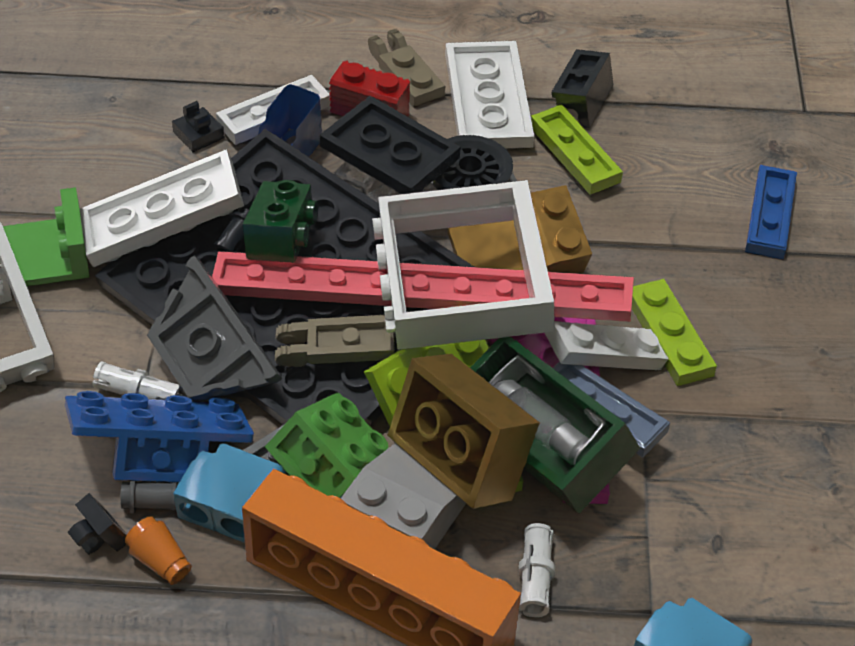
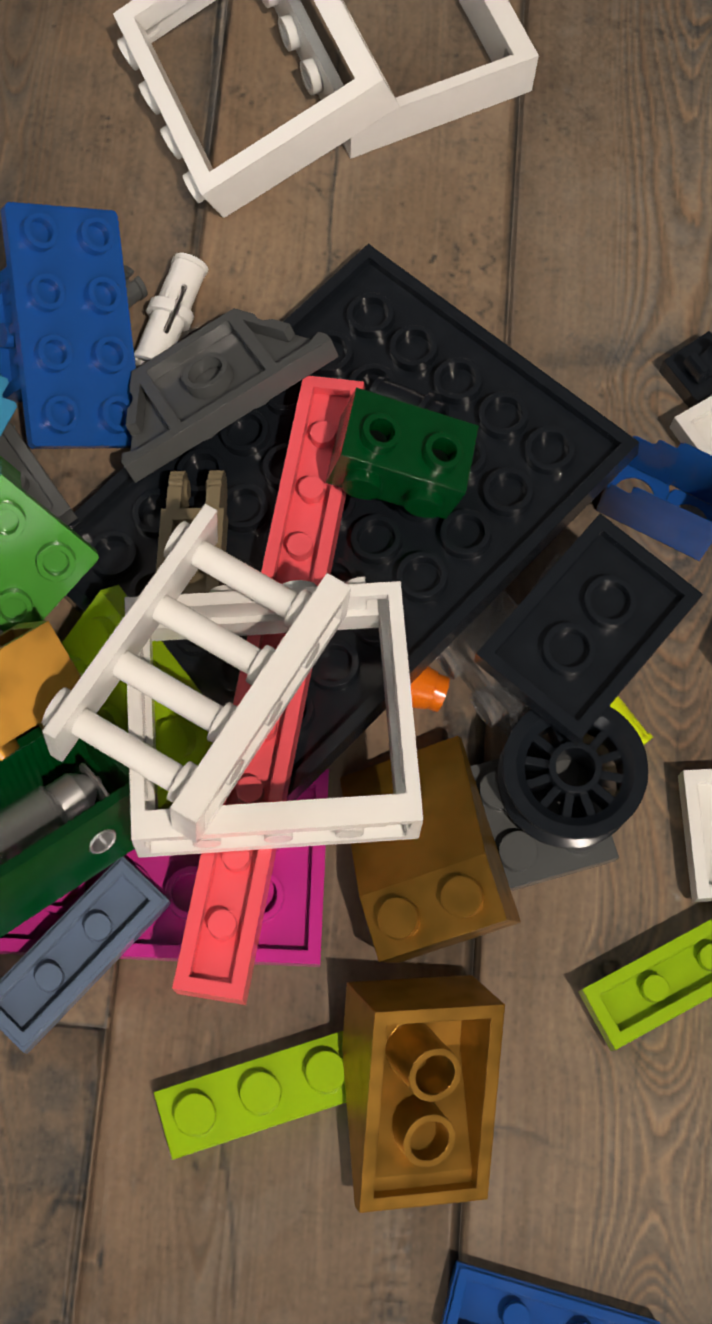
camera: 90 degrees right, 25 degrees up
(51, 248) = (431, 184): bright green bracket -> none
(160, 208) = (465, 307): white plate -> none
(461, 233) = (233, 730): none -> white fence
(606, 346) = (209, 1030): white plate -> none
(653, 246) = (421, 1089): none -> pearl gold slope

